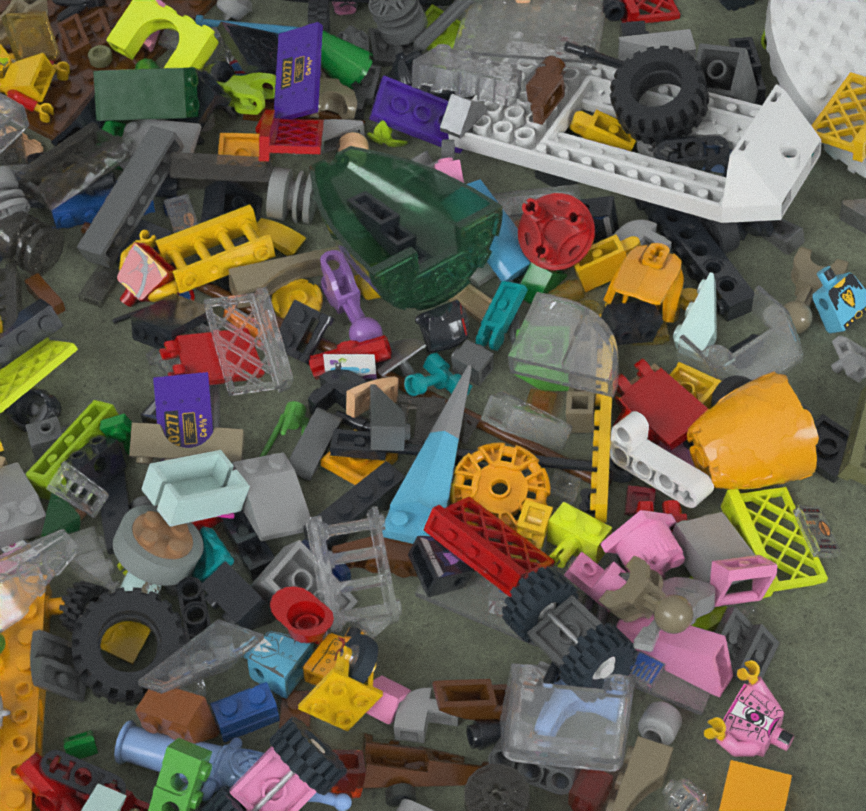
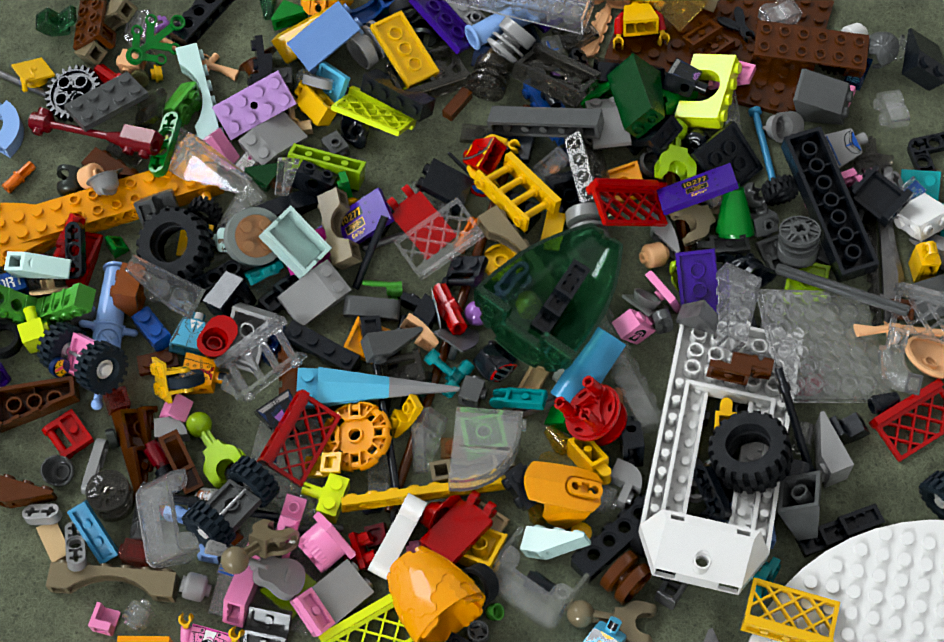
camera: 75 degrees right, 10 degrees up
(100, 56) = (687, 55): olive tile -> none
(137, 53) = (684, 79): none -> black torso
(229, 123) = (647, 163): none -> dark grey hair
(234, 415) = (370, 252): none -> black bar
(412, 143) = (662, 291): none -> bright pink plate
(447, 736) = (156, 454): none -> dark red brick
(470, 658) = (217, 454): none -> lime piece
(483, 426) = (404, 418): none -> yellow slope
(765, 258) = (626, 577): none -> reddish brown wheel

